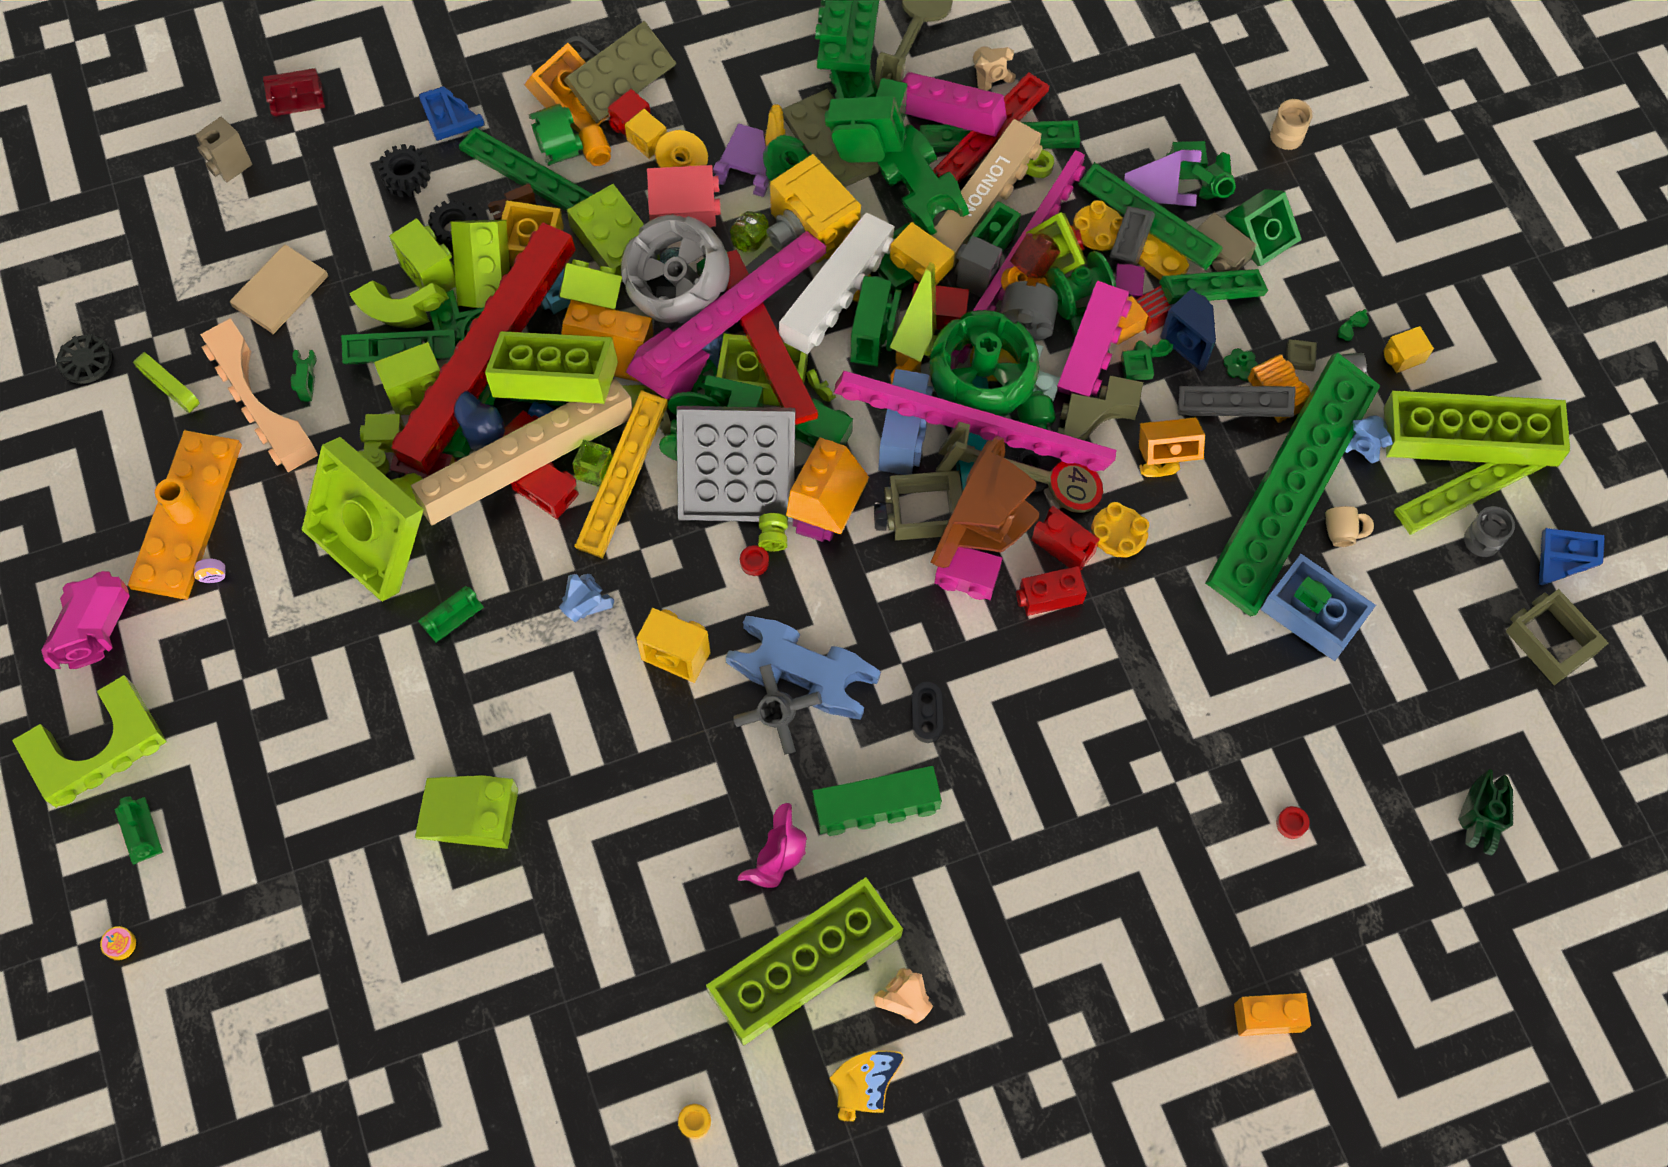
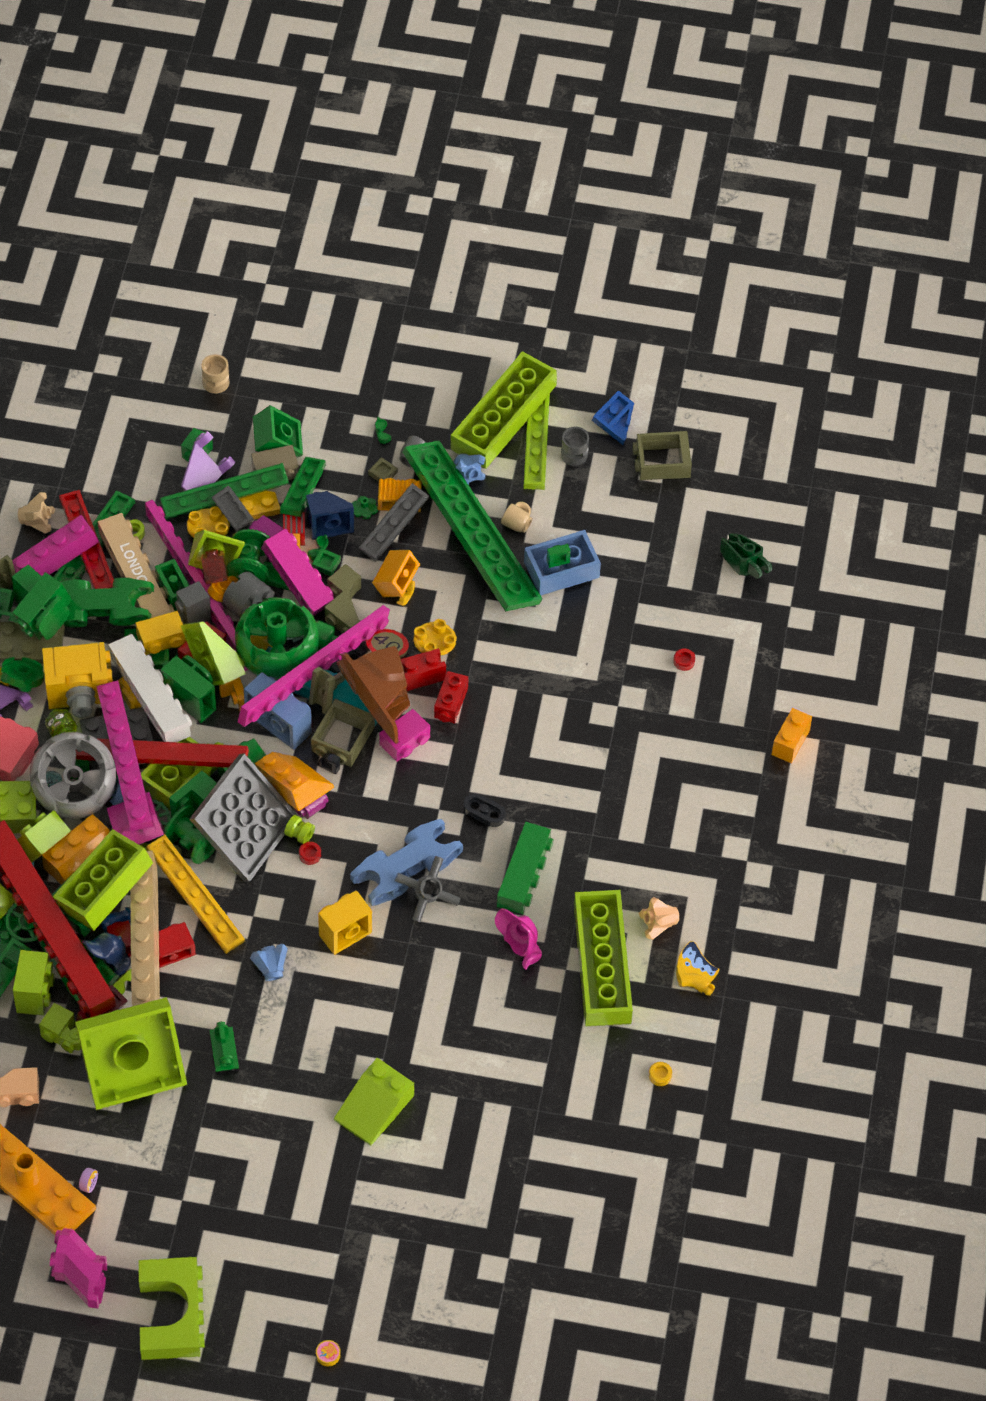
camera: 60 degrees left, 10 degrees down
(138, 829) = (254, 1307): green hinge -> none
(591, 462) = (176, 906): clear neon green brick -> none
(1216, 178) = (226, 437): green rock -> none
(1407, 349) = (423, 412): yellow brick -> none

